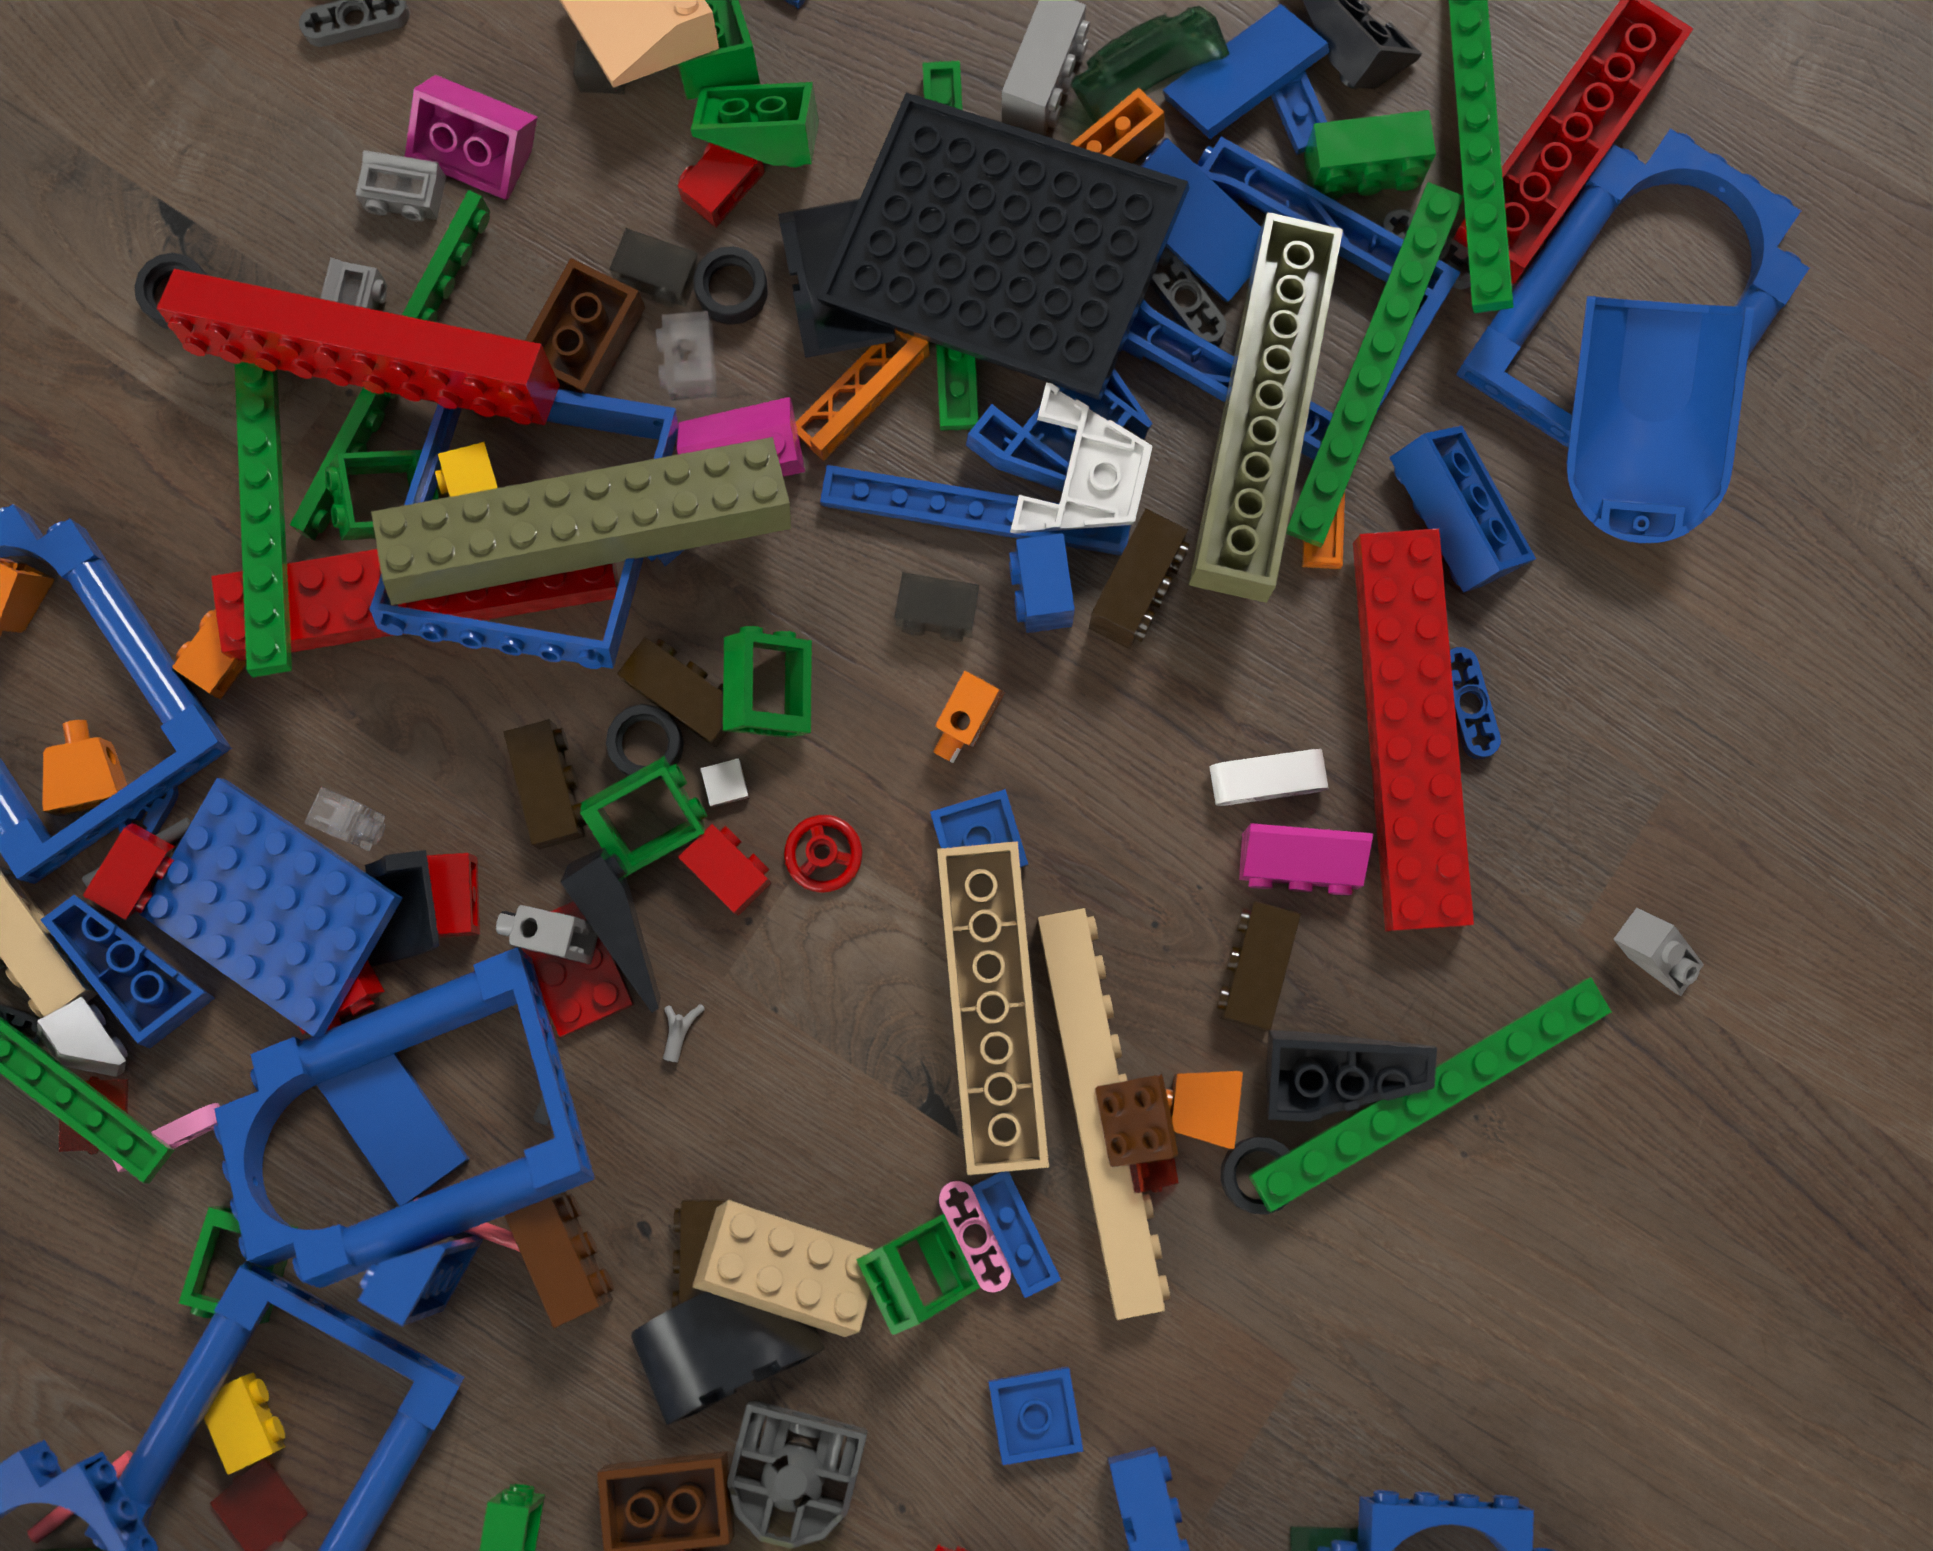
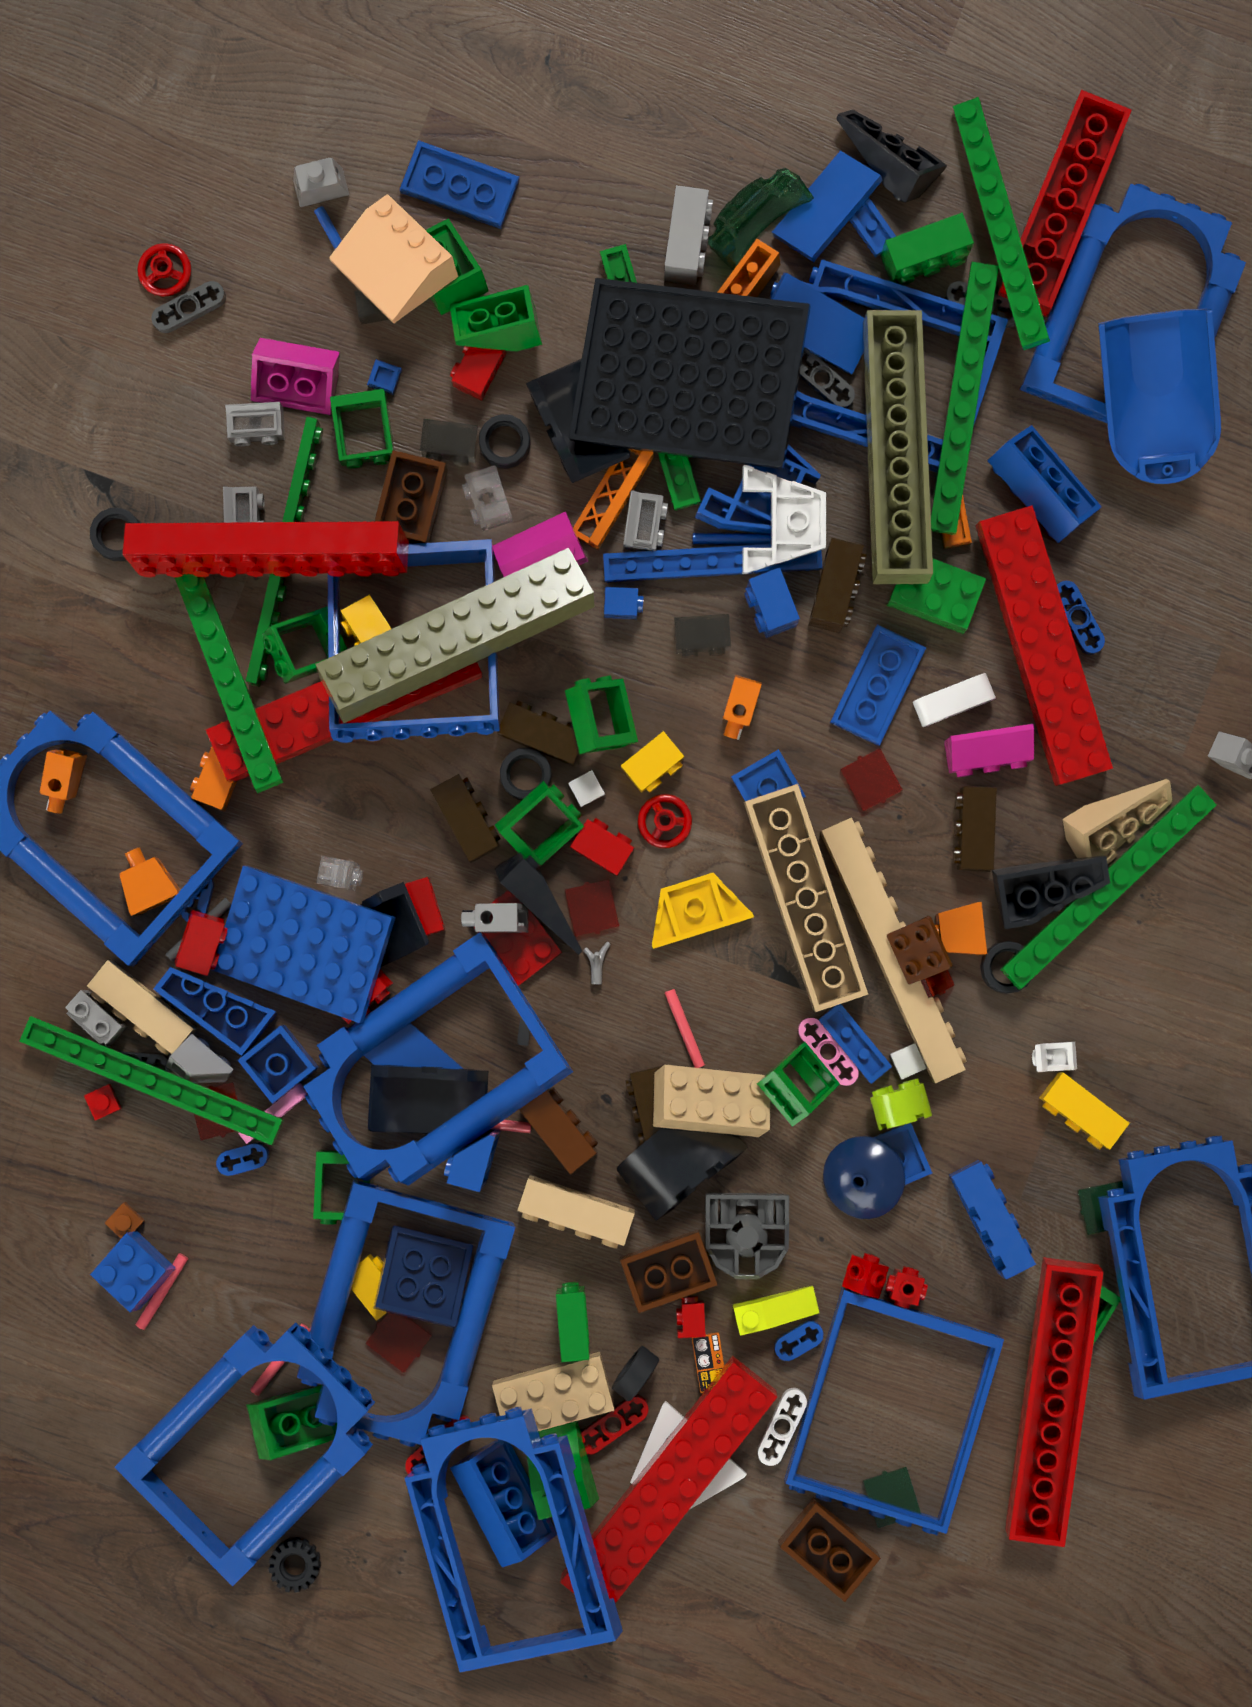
camera: 15 degrees left, 5 degrees up
(109, 1201) = (240, 1153): none -> blue beam
(191, 1067) = (278, 1063): none -> blue brick
(311, 1426) = (423, 1276): none -> dark blue plate
(373, 1167) = (420, 1096): none -> black panel
(540, 188) = (355, 402): none -> green window
(553, 1383) = (577, 1211): none -> tan brick
(591, 166) = (384, 377): none -> blue tile
(691, 951) = (592, 907): none -> clear red piece
(779, 1154) = (684, 1028): none -> coral bar
(825, 767) = (653, 762): none -> yellow brick
(835, 987) = (695, 909): none -> yellow wing
(836, 538) = (622, 603): none -> blue brick
(894, 435) = (643, 522): none -> light grey window
(1005, 1428) = (878, 1168): none -> dark blue dish
(1006, 485) = (731, 539): none -> blue bar
(1059, 1340) = (900, 1105): none -> lime brick
(1086, 1277) = (908, 1061): none -> white tile
(1127, 862) = (871, 779): none -> clear red piece
(1166, 733) = (878, 685): none -> blue tile
(1285, 633) = (945, 600): none -> green brick
(1299, 1322) = (1055, 1056): none -> white bracket
(1323, 1413) = (1083, 1111): none -> yellow brick
(1456, 1001) = (1109, 823): none -> tan wedge

